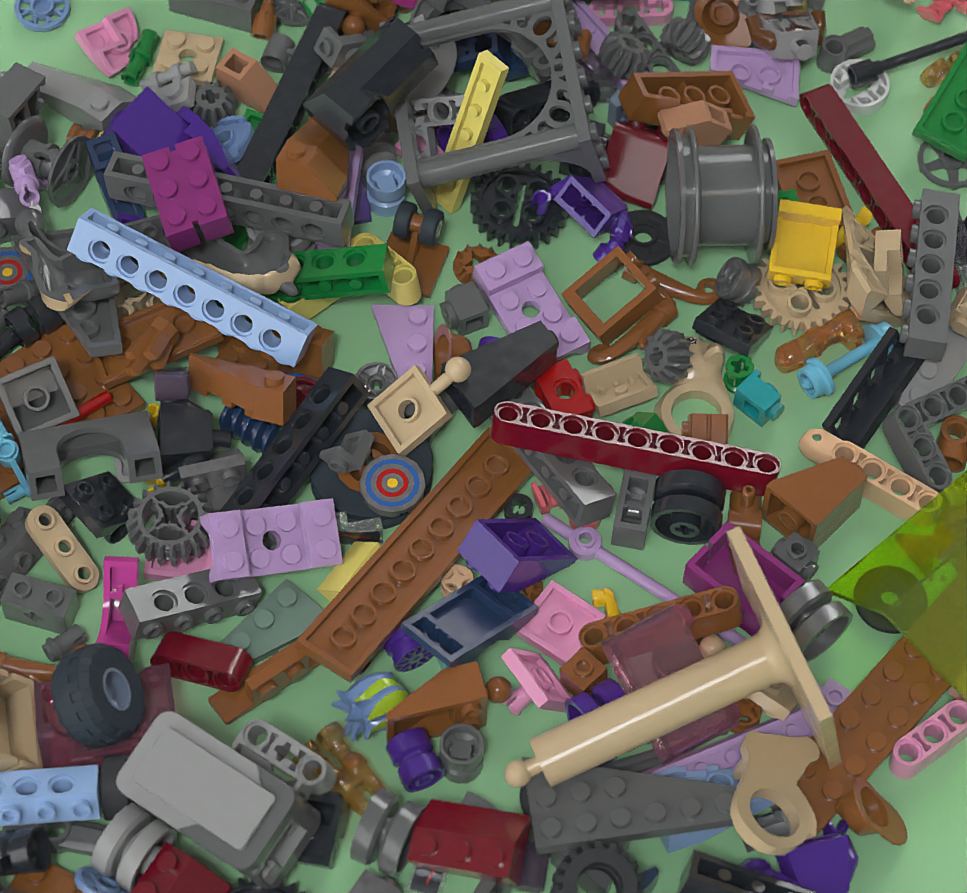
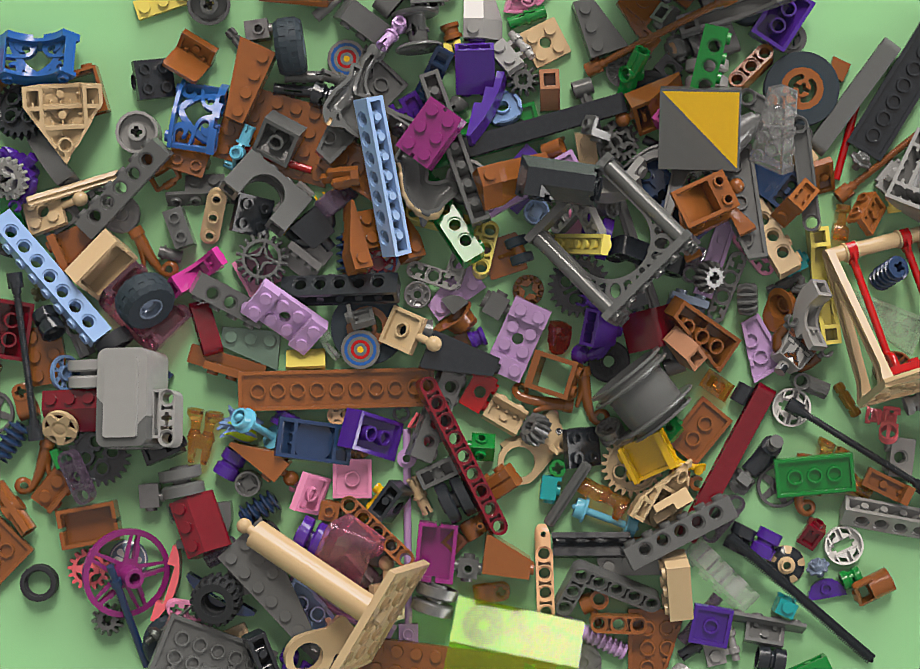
camera: 55 degrees right, 30 degrees up
(371, 668) = (244, 421): none -> medium azure piece
(379, 327) = (450, 273): none -> light grey beam
(423, 346) = (454, 303): none -> dark grey tile
(505, 747) = (260, 507): none -> dark blue piece
(564, 264) = (559, 336): none -> clear red rock
(626, 581) = (390, 501): none -> black brick
(648, 556) = (419, 495): none -> tan pin
(776, 132) = (716, 385): none -> clear orange slope
(782, 377) = (567, 494): none -> dark grey axle
(801, 122) = (742, 393): none -> black beam
(849, 552) = (489, 592): none -> clear orange piece
(895, 26) = (847, 399): none -> pearl gold axle
(902, 151) = (757, 464): none -> piece

